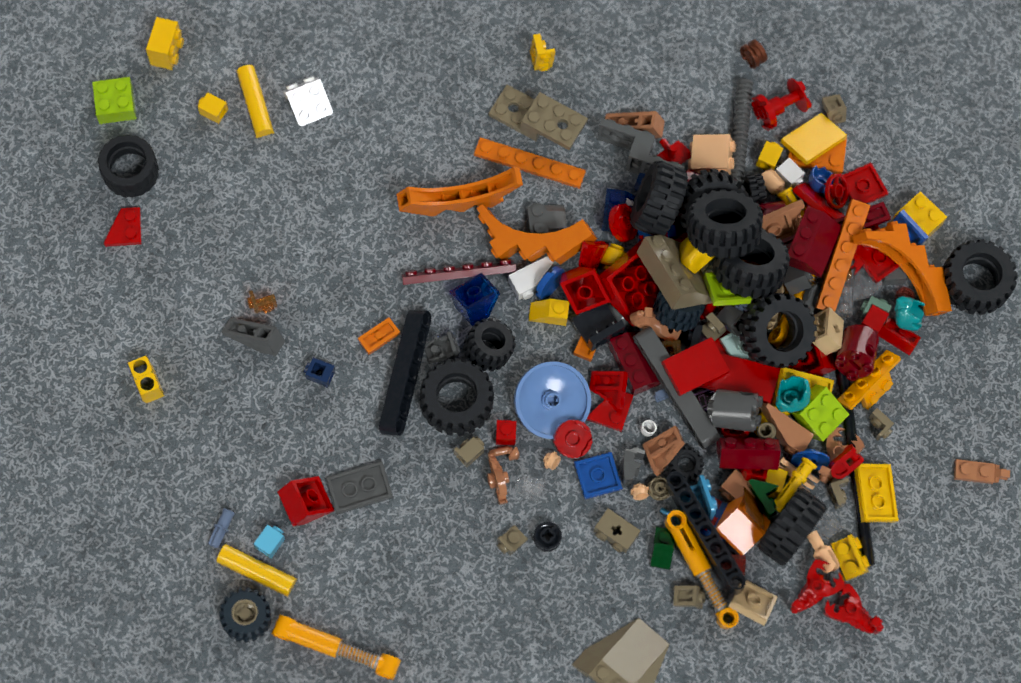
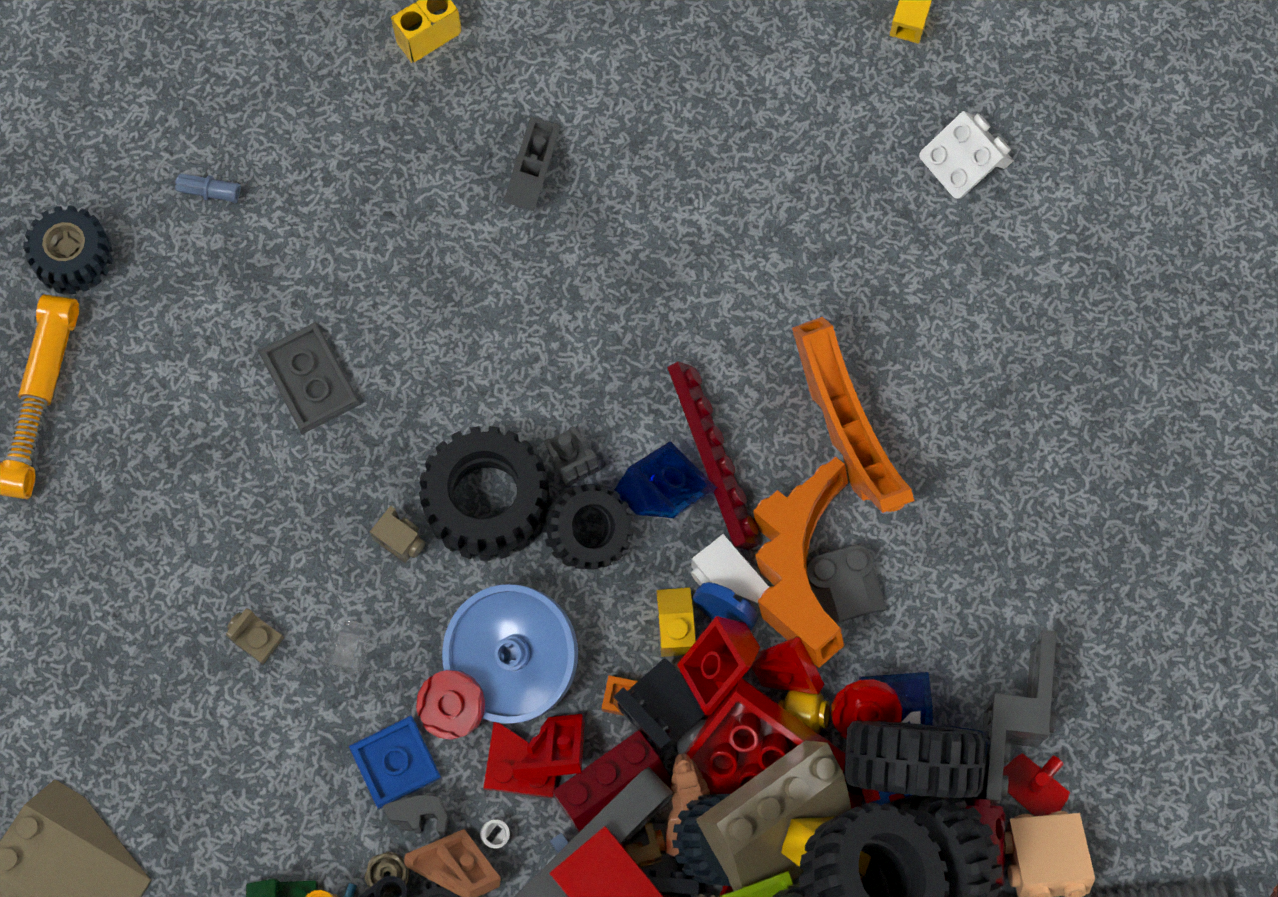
camera: 85 degrees right, 0 degrees up
(254, 101) = (943, 77): yellow brick -> none
(256, 570) = (149, 253): yellow brick -> none
(263, 304) = (589, 167): clear orange bracket -> none
(269, 541) = (194, 260): medium azure brick -> none
(305, 500) = (270, 299): red slope -> none
(317, 365) = (487, 285): dark blue brick -> none
(378, 336) = (573, 351): orange plate -> none
(405, 373) = (515, 404): black beam -> none
(497, 478) = (355, 589): nougat animal -> none
(505, 432) = (439, 587): red brick -> none
(529, 162) = (951, 537): orange plate -> none
(538, 117) = (1038, 530): dark tan bracket -> none
(541, 58) = (1154, 511): yellow bracket -> none
(547, 536) = (268, 694): black wheel -> none
(551, 460) = (406, 676): light nougat plate -> none
(610, 522) = (294, 830): dark tan brick -> none
(639, 491) = (376, 839): light nougat plate -> none
(646, 121) = (1076, 708): nougat slope -> none

